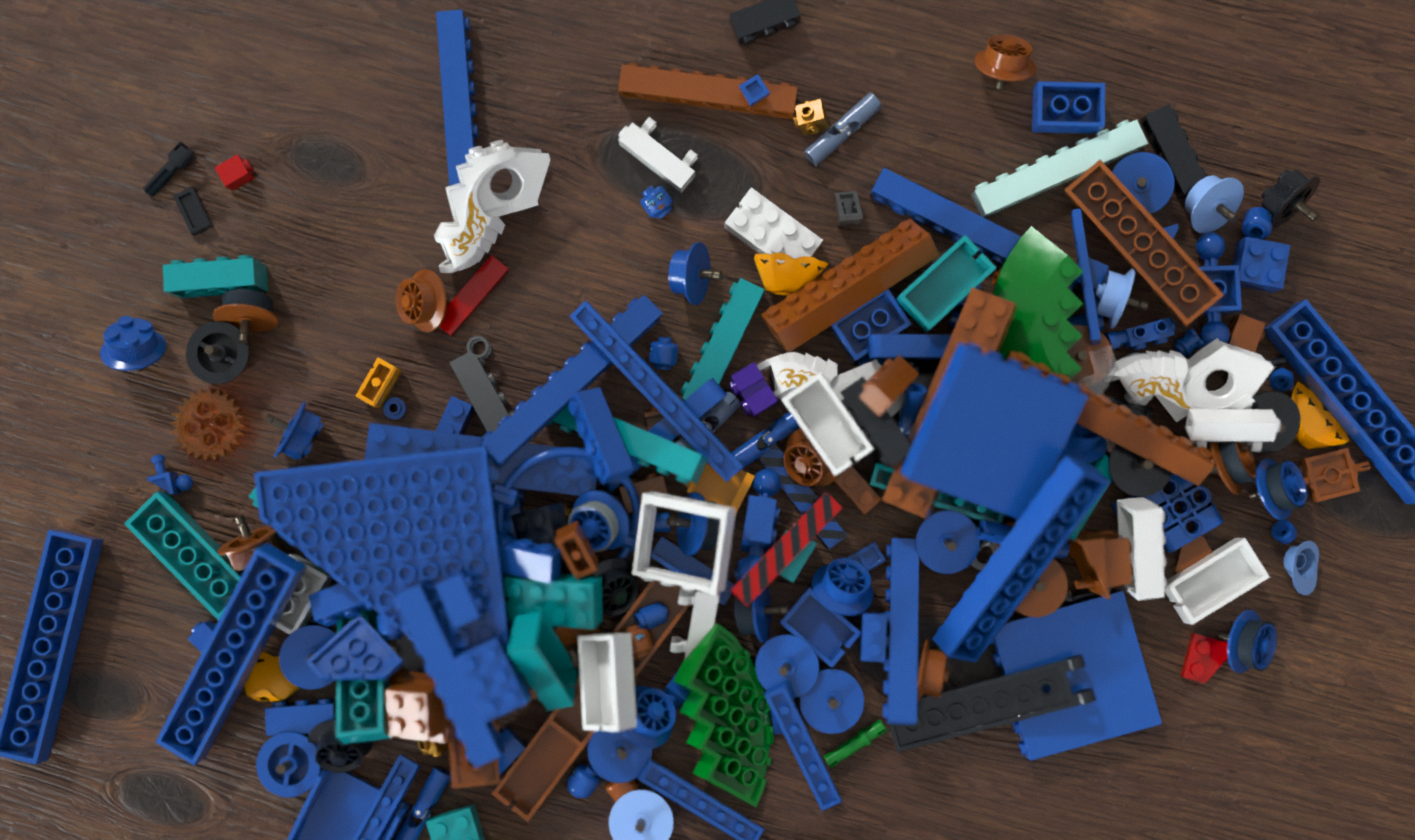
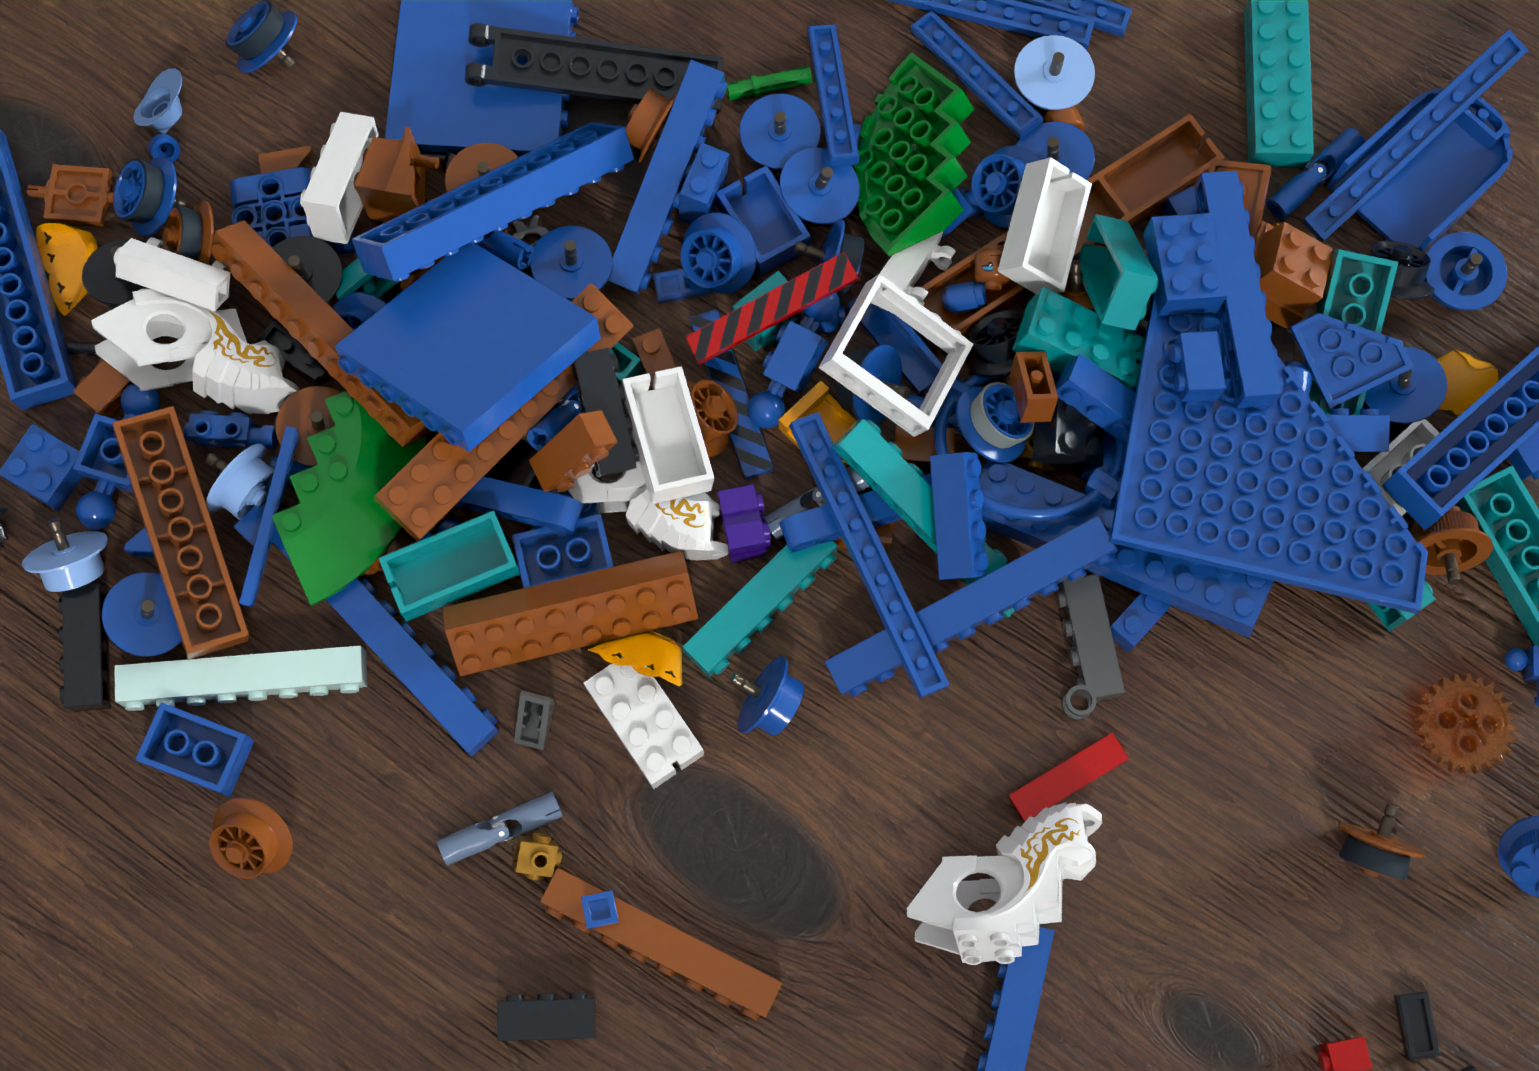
camera: 165 degrees left, 10 degrees down
(214, 278) = (1409, 912): teal brick -> none
(216, 354) = (1433, 807): black piece -> none
(297, 433) = (1351, 667): blue piece -> none
(299, 716) = (1434, 325): blue brick -> none
(378, 383) = (1225, 698): light orange brick -> none
(401, 408) = (1204, 667): blue plate -> none
(422, 300) = (1136, 784): dark orange piece -> none
(583, 781) = (1109, 143): blue head -> none
(656, 202) = (782, 815): blue head -> none
(657, 157) = (761, 876): white brick -> none
(663, 353) = (841, 613): blue head -> none
(777, 431) = (738, 463): blue piece -> none
(1104, 367) = (294, 397): clear tile -> none
(1188, 343) = (182, 400): blue brick -> none
(1203, 657) = (320, 45): red wing -> none
(1215, 580) = (270, 119): white piece -> none
(1257, 223) = (24, 518): blue head -> none
(1281, 379) = (81, 323): blue tile -> none

